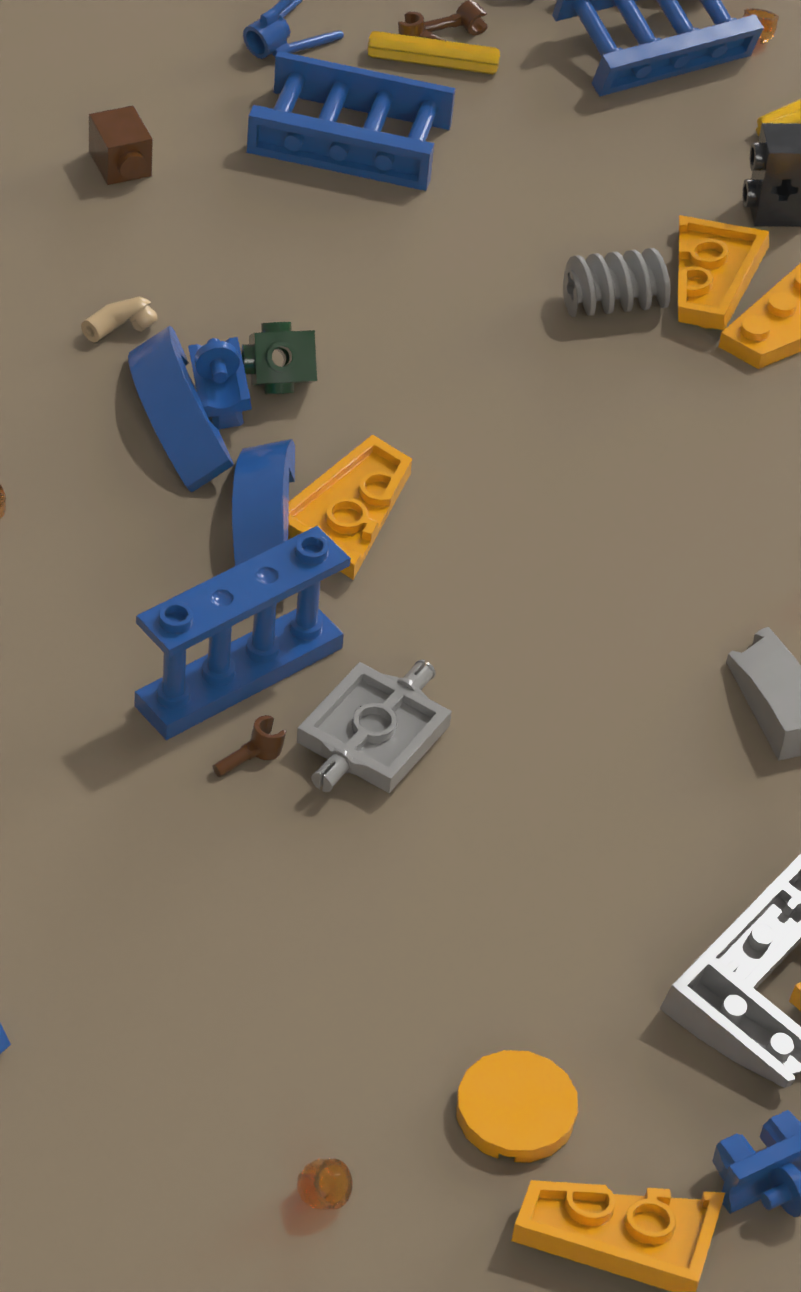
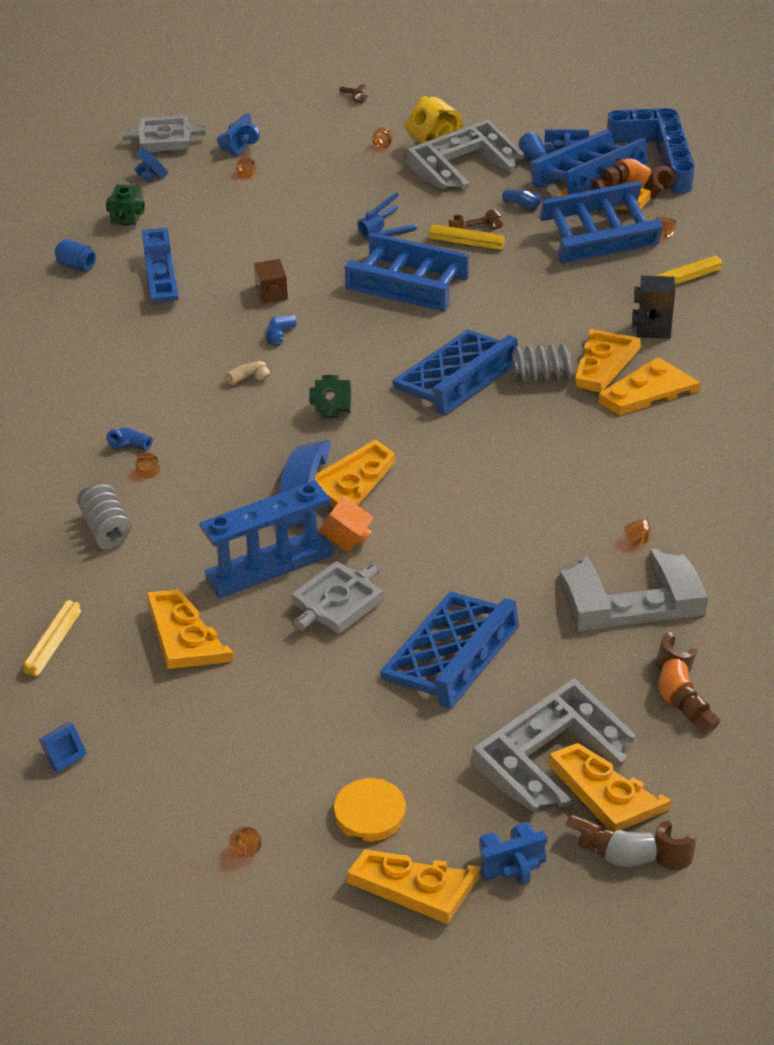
camera: 15 degrees right, 5 degrees down
(122, 811) = (182, 634): none -> light orange wing
(150, 226) = (275, 328): none -> blue arm
(176, 410) = (264, 422): blue slope -> none
(221, 381) = (294, 407): blue hips -> none
(261, 745) = (272, 604): reddish brown hand -> none
(364, 595) = (347, 525): none -> orange brick
(503, 310) = (463, 379): none -> blue fence
(623, 824) = (472, 655): none -> blue fence

